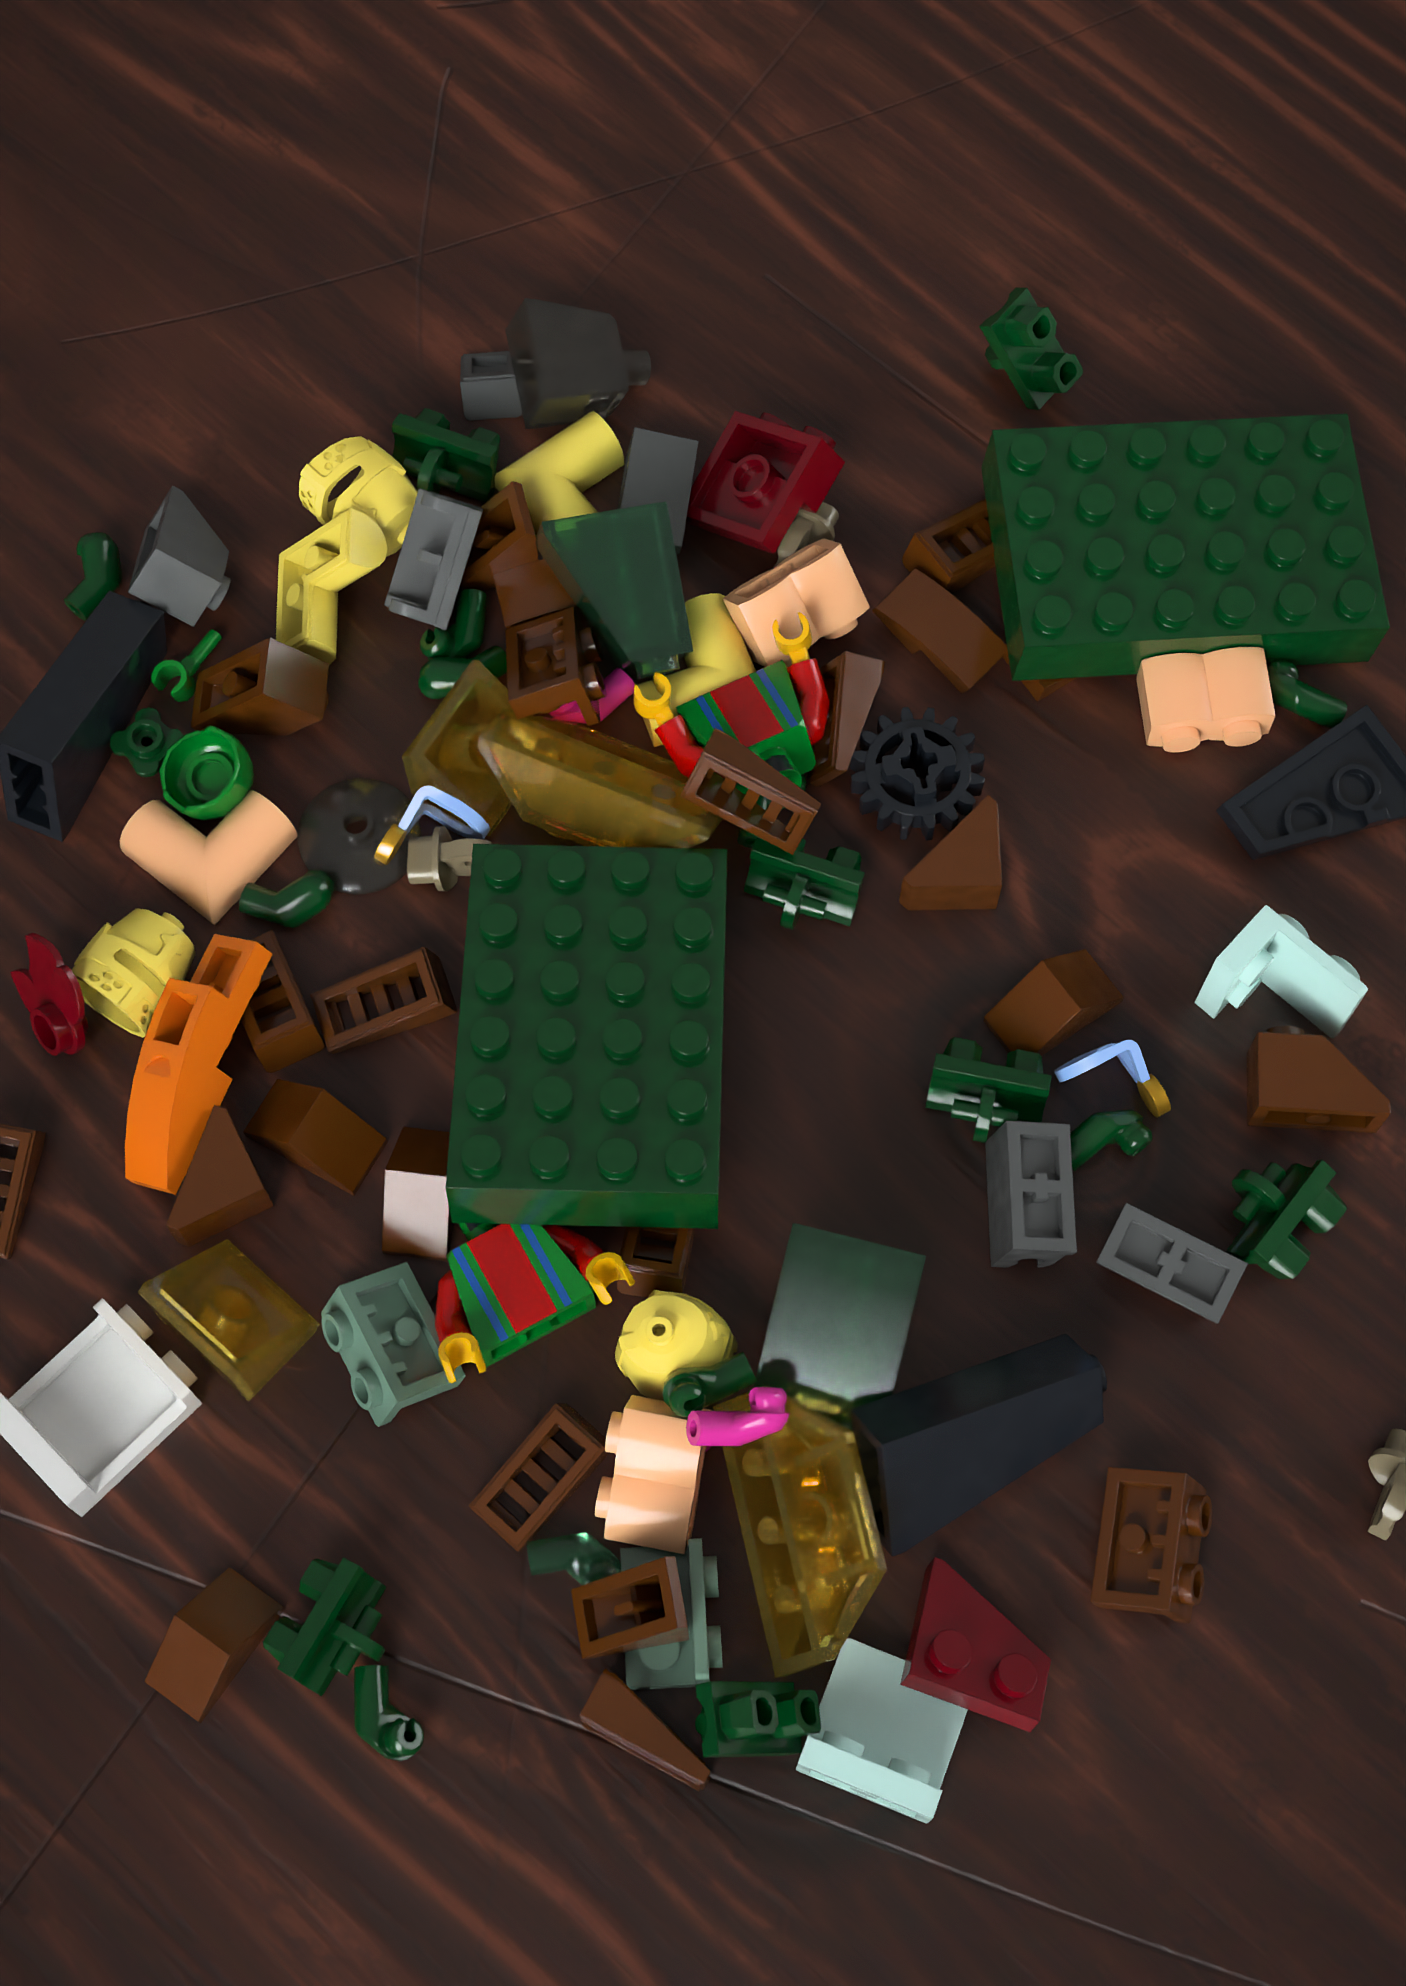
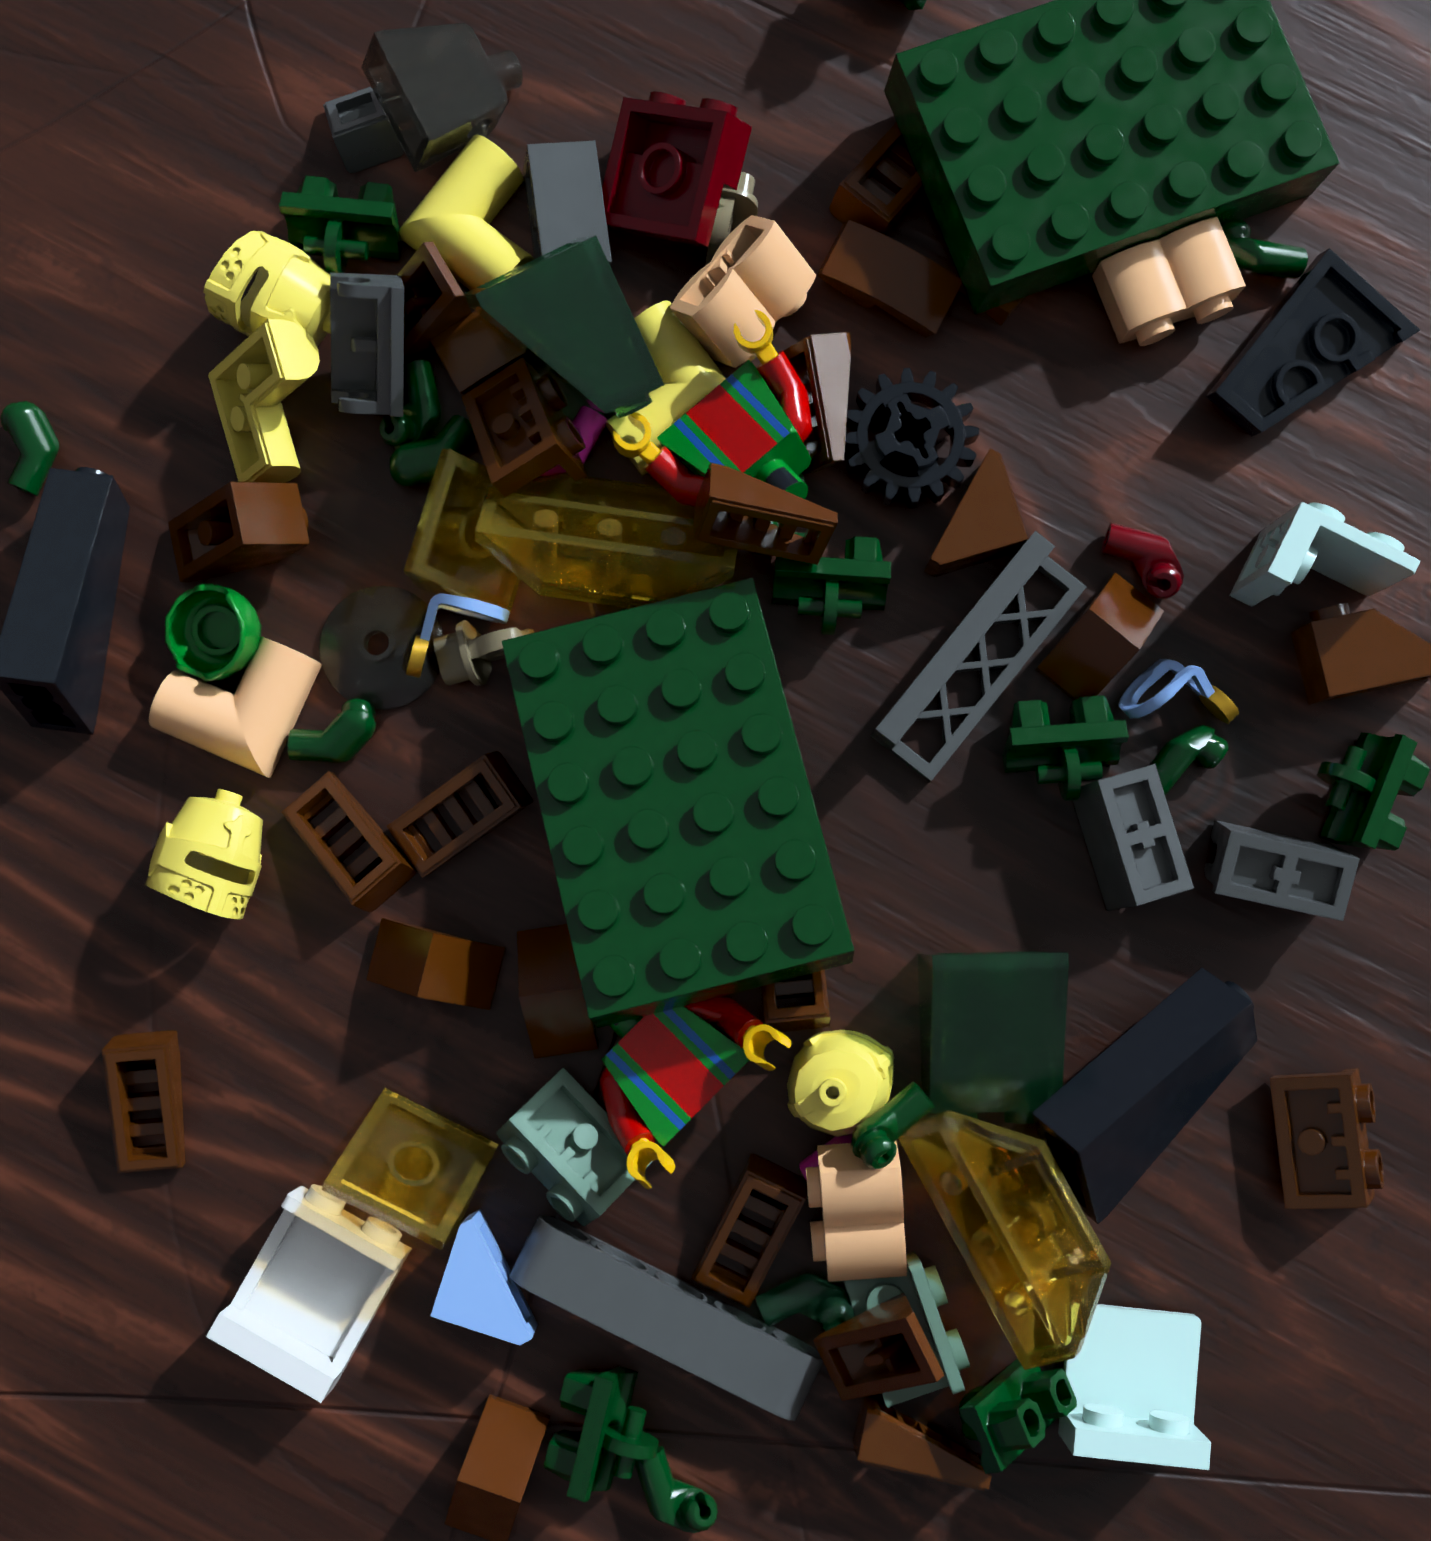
camera: 15 degrees left, 15 degrees up
(52, 998) = (148, 920): dark red plate -> none
(128, 743) = (124, 617): dark green plate -> none
(179, 1060) = (284, 948): orange slope -> none
(180, 561) = (111, 413): dark grey slope -> none
(186, 668) = (154, 521): green hand -> none
(219, 1185) = (362, 1039): reddish brown slope -> none
(256, 1445) = (478, 1287): none -> light blue slope
(434, 1532) = (667, 1317): none -> dark grey beam
(740, 1427) = (927, 1167): dark pink arm -> none
(913, 970) = (967, 635): none -> dark grey fence
(973, 1653) = (1190, 1286): dark red wing -> none
(1123, 941) = (1150, 556): none -> dark red arm

